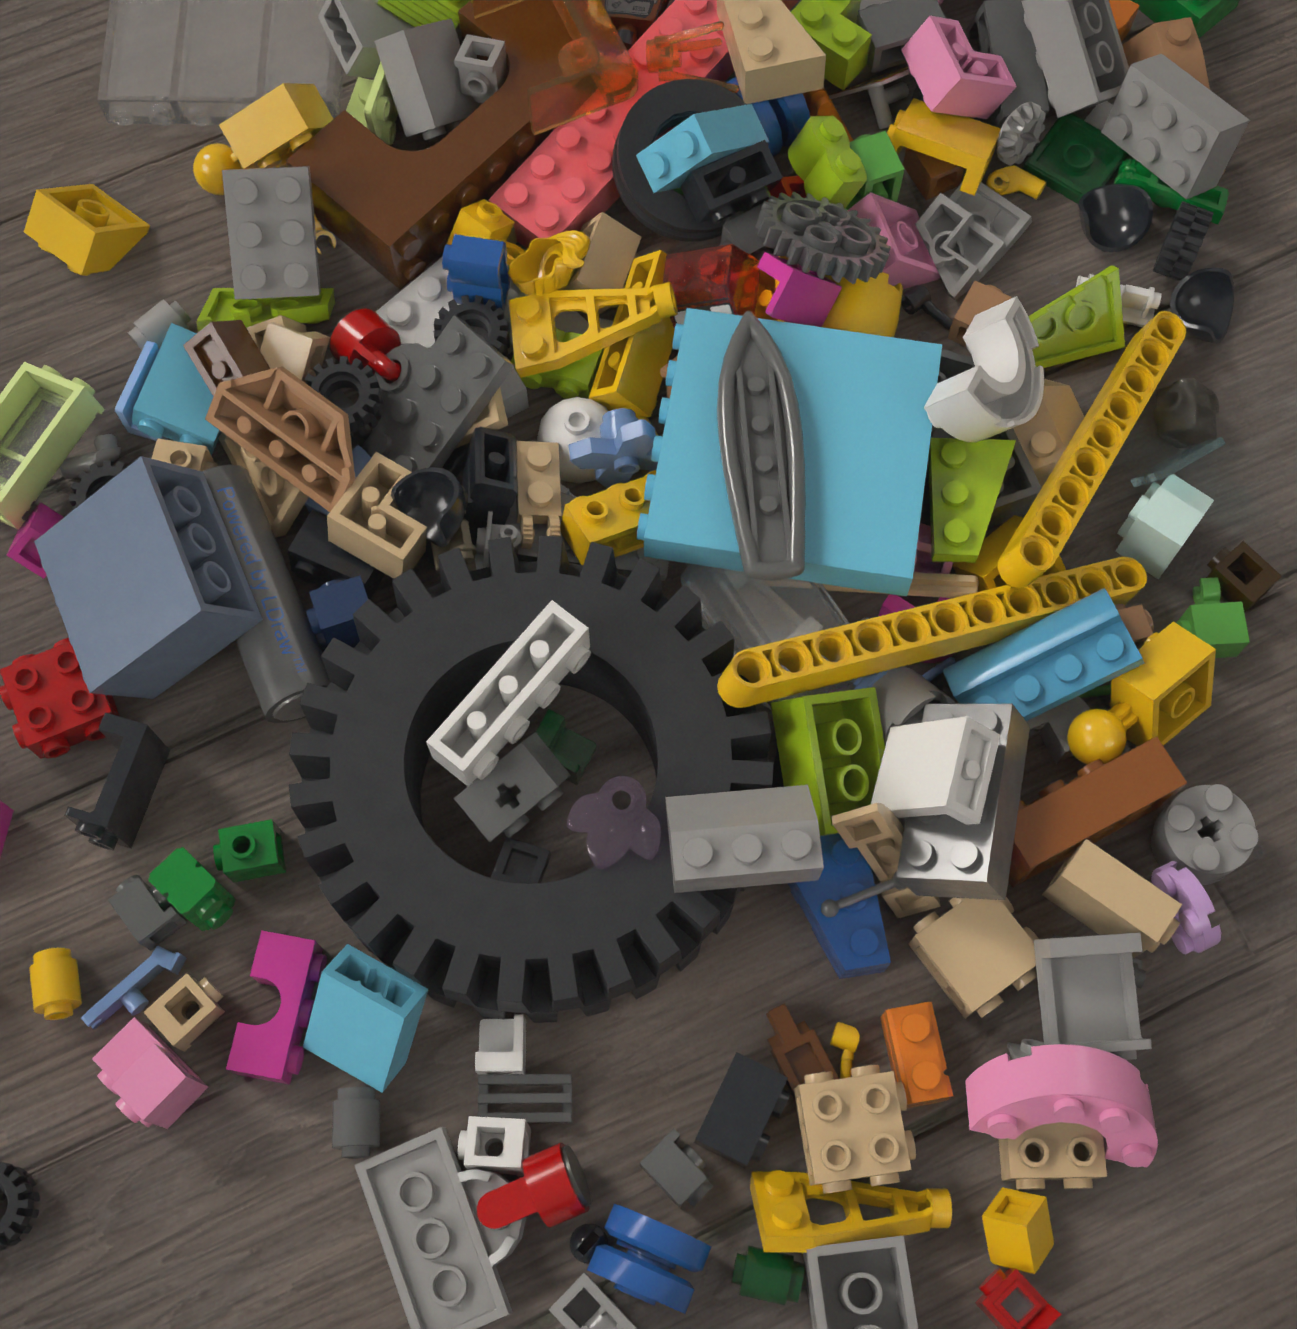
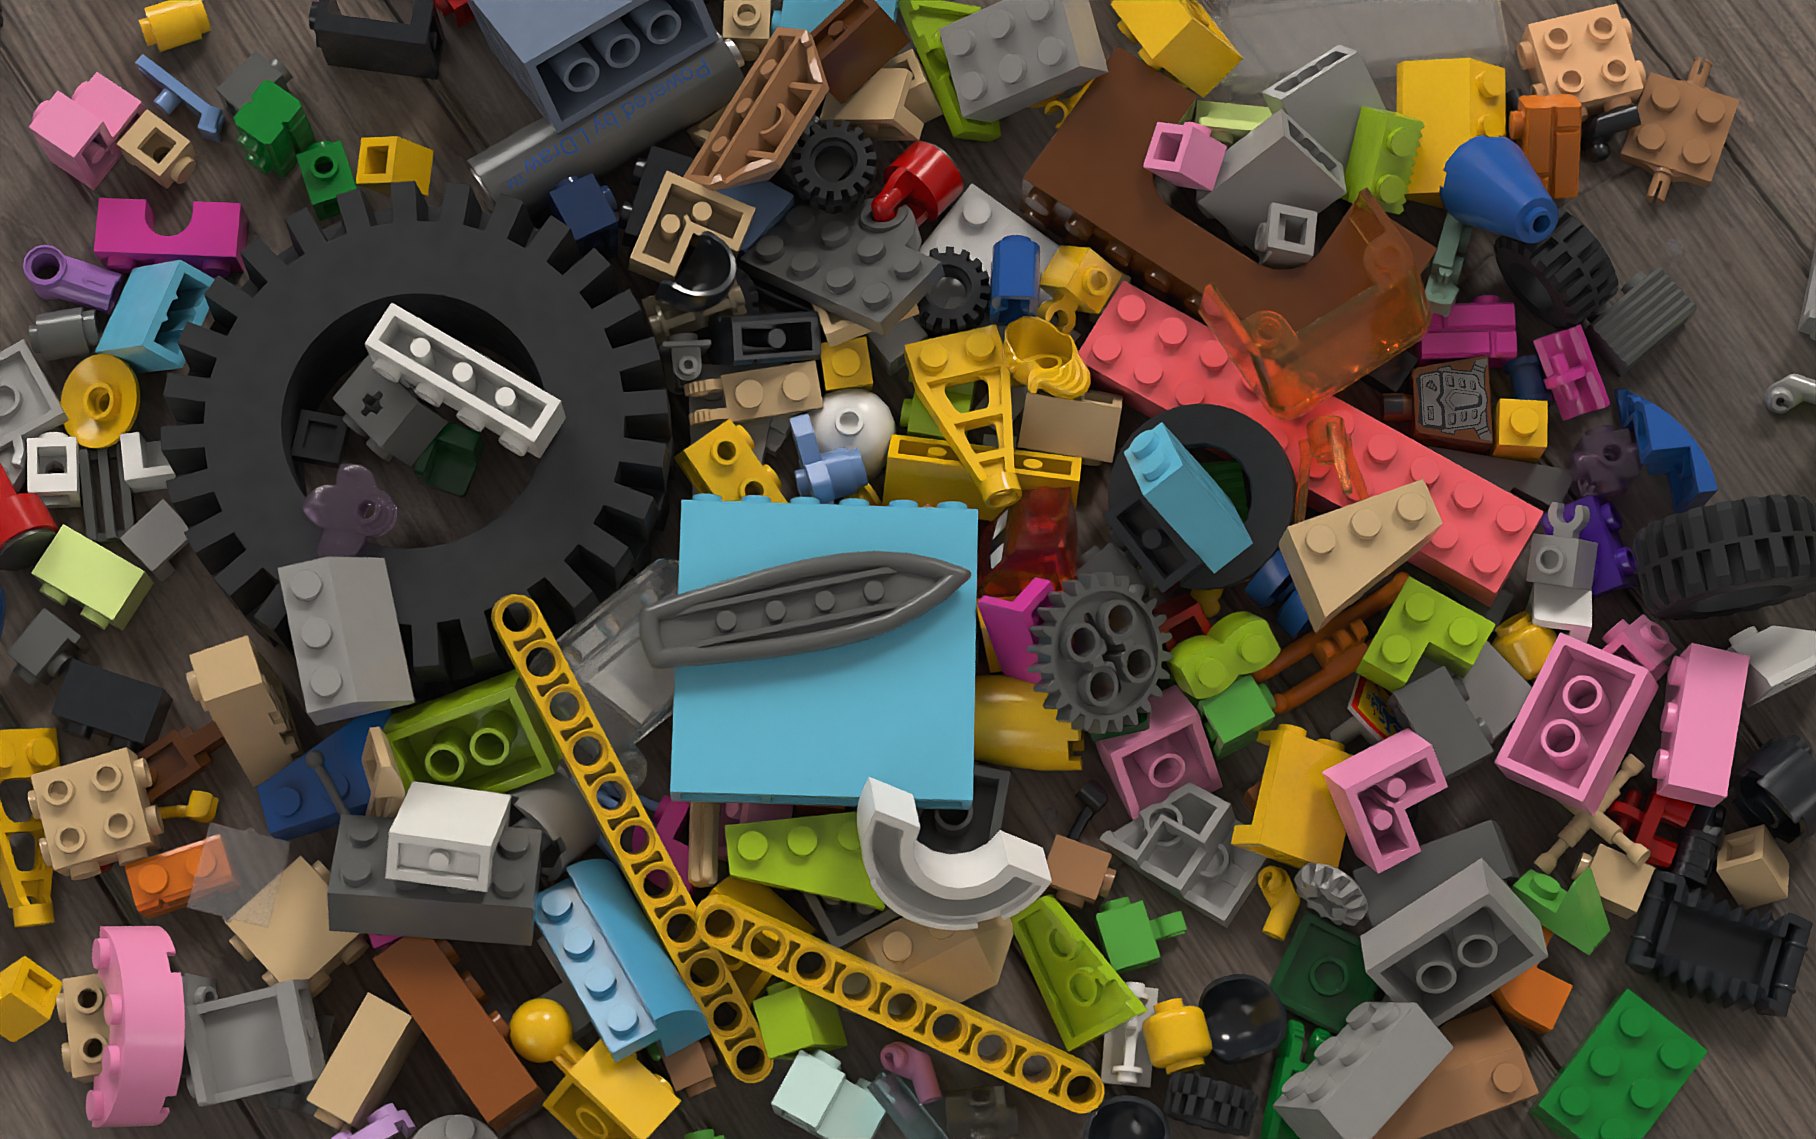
camera: 80 degrees right, 5 degrees up
(254, 785) = (393, 160): none -> yellow brick
(303, 1105) = (75, 280): none -> medium lavender piece
(397, 120) = (1185, 155): none -> bright pink brick
(422, 1110) = (100, 400): none -> yellow dish
(524, 419) = (846, 365): none -> yellow brick
(583, 1046) = (157, 539): none -> light grey panel
(611, 1119) = (91, 578): none -> yellowish green brick
(773, 961) = (247, 706): none -> tan wedge
(931, 992) = (238, 875): none -> clear piece
(1036, 280) = (1129, 936): none -> bright green brick
(1105, 530) = (797, 1021): none -> lime brick
(1129, 254) = (1176, 1037): none -> yellow head
(1129, 460) = (915, 1066): none -> bright pink arm

